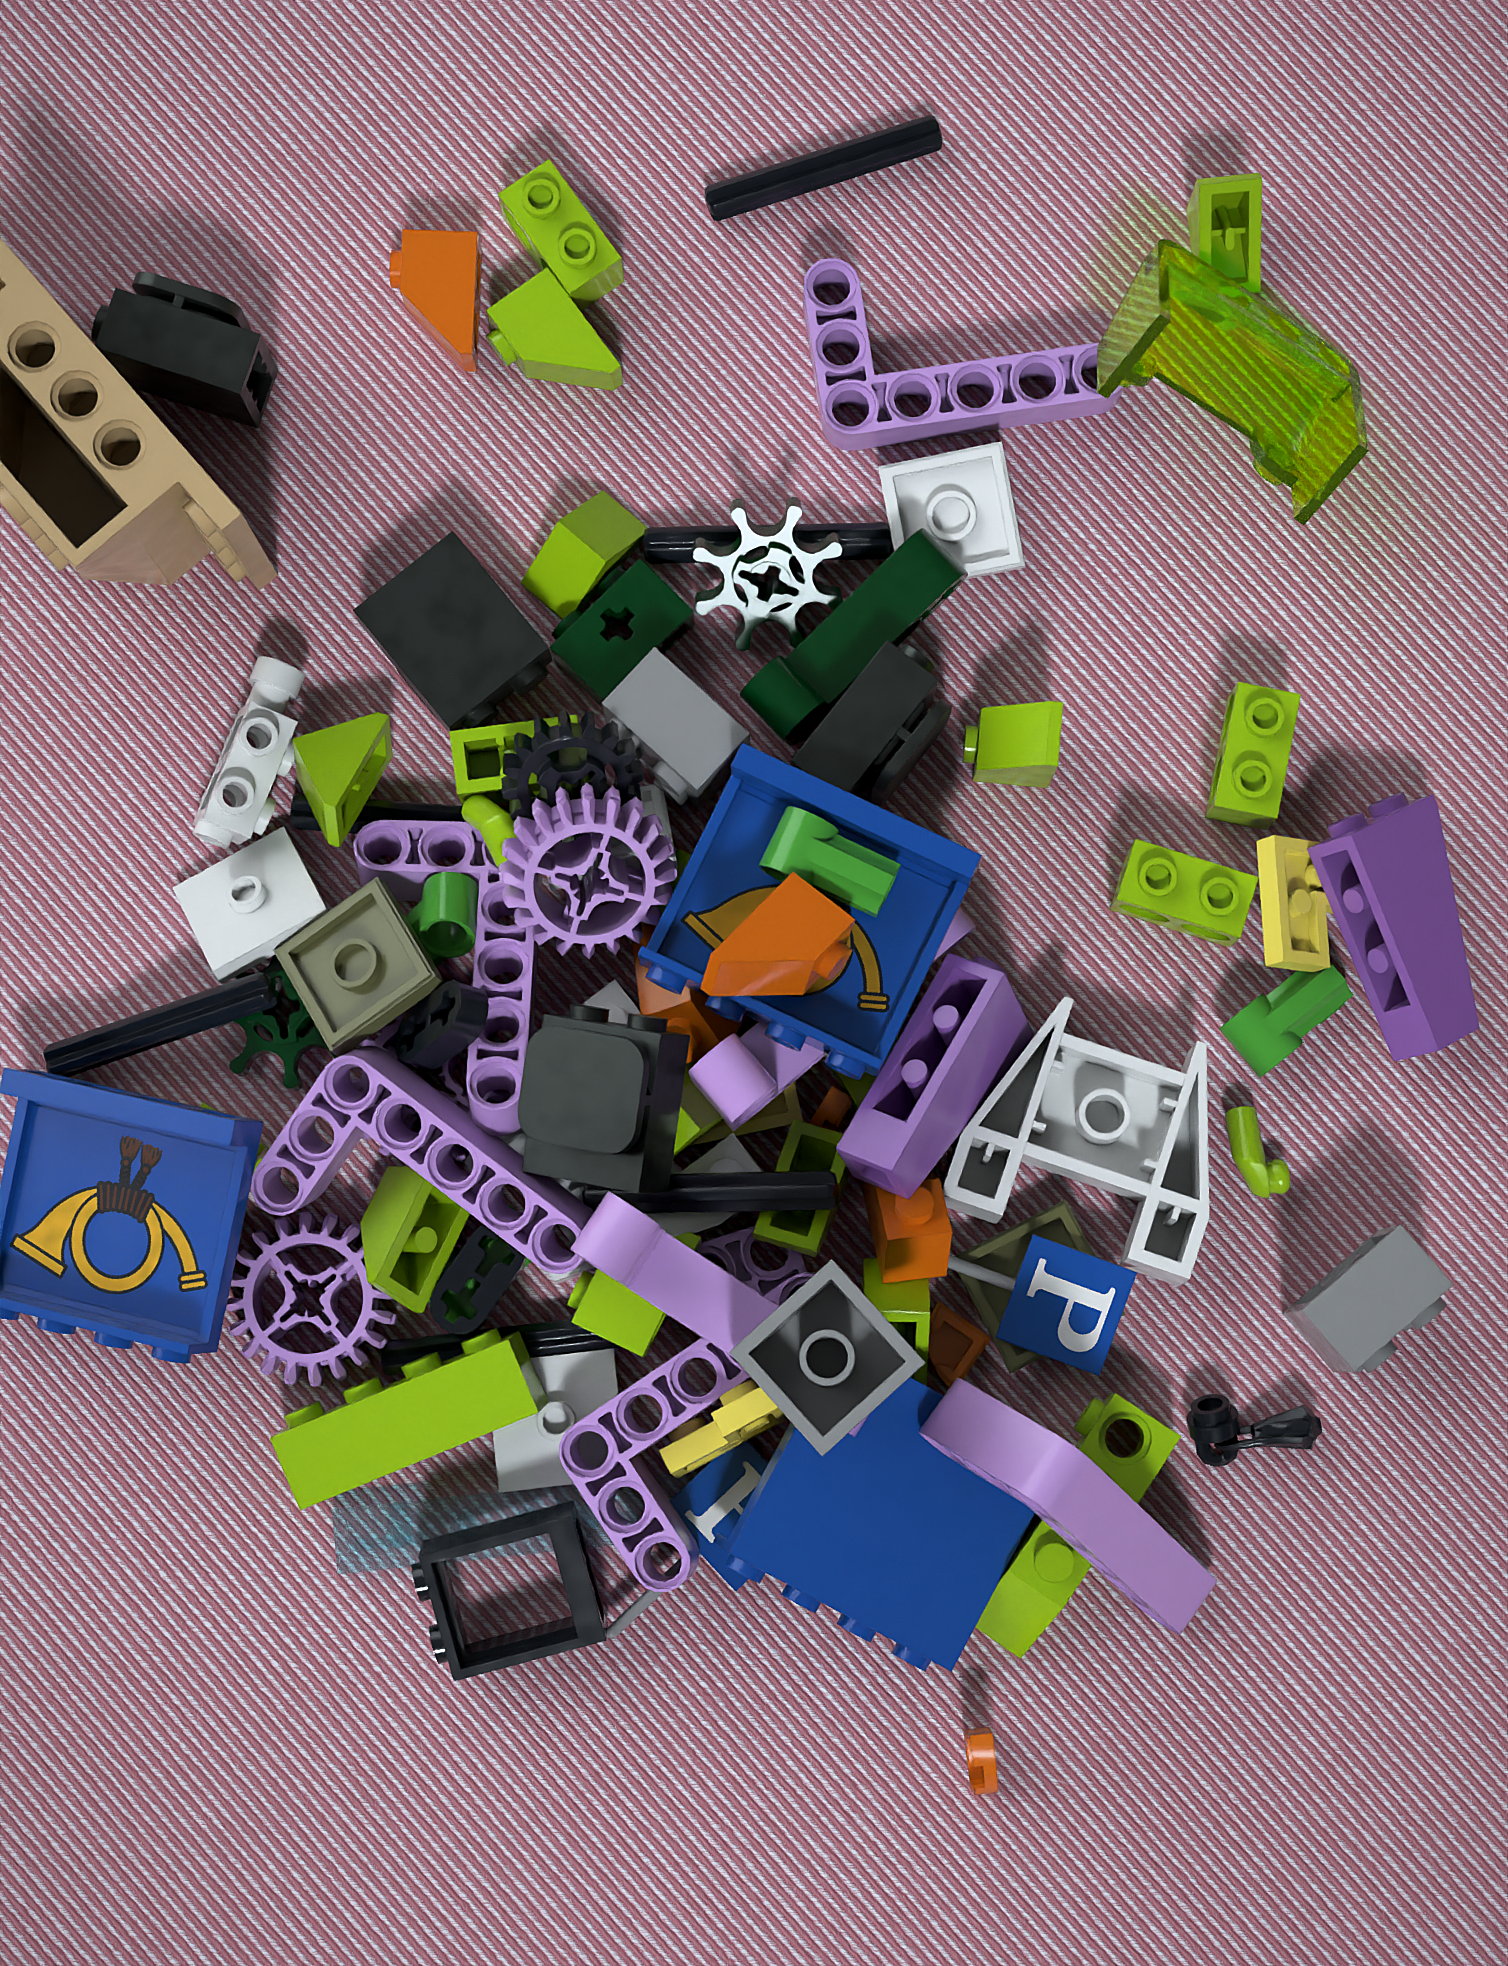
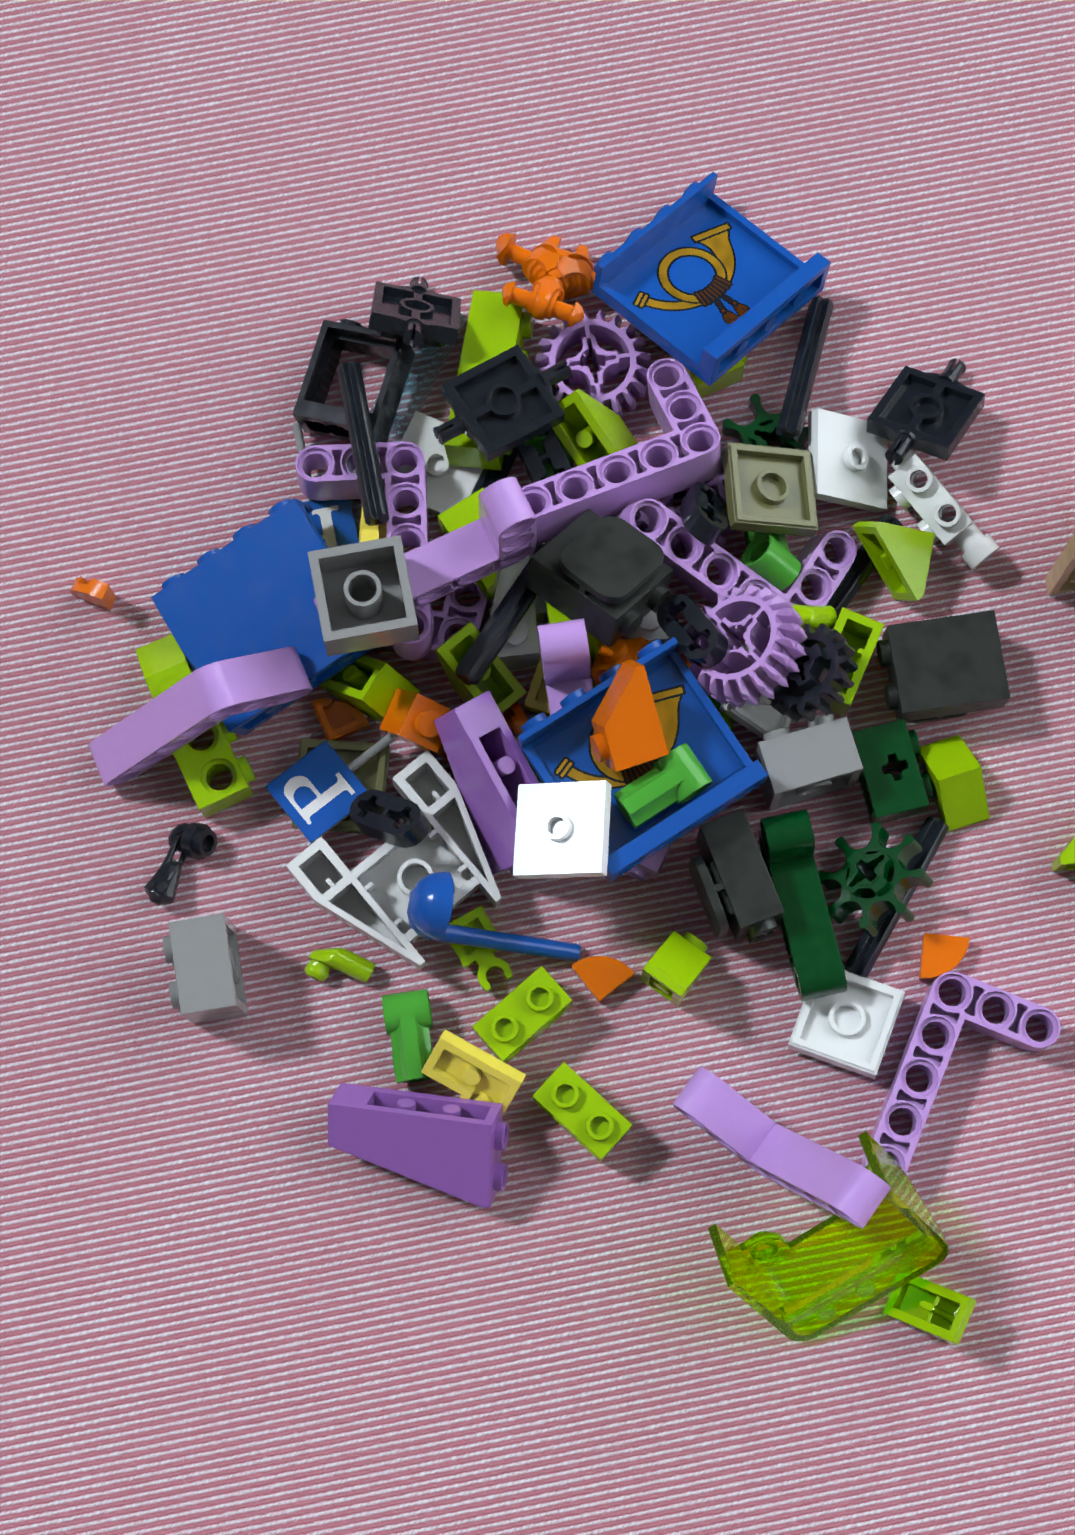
camera: 125 degrees right, 5 degrees down
(133, 842) = (925, 412): none -> black plate
(214, 1418) = (554, 277): none -> orange piece
(380, 1561) = (415, 314): none -> black plate
(444, 1365) = (503, 403): none -> black plate
(596, 939) = (698, 625): none -> black beam
(600, 1515) = (363, 443): none -> black axle
(805, 454) = (940, 954): none -> orange tile
(959, 948) = (562, 830): none -> white plate
(1041, 1188) = (384, 826): none -> black beam
(1072, 833) = (602, 975): none -> orange tile
(1127, 1004) = (482, 956): none -> lime plate
(1140, 1056) = (431, 911): none -> blue piece
(1171, 473) = (780, 1153): none -> lavender beam

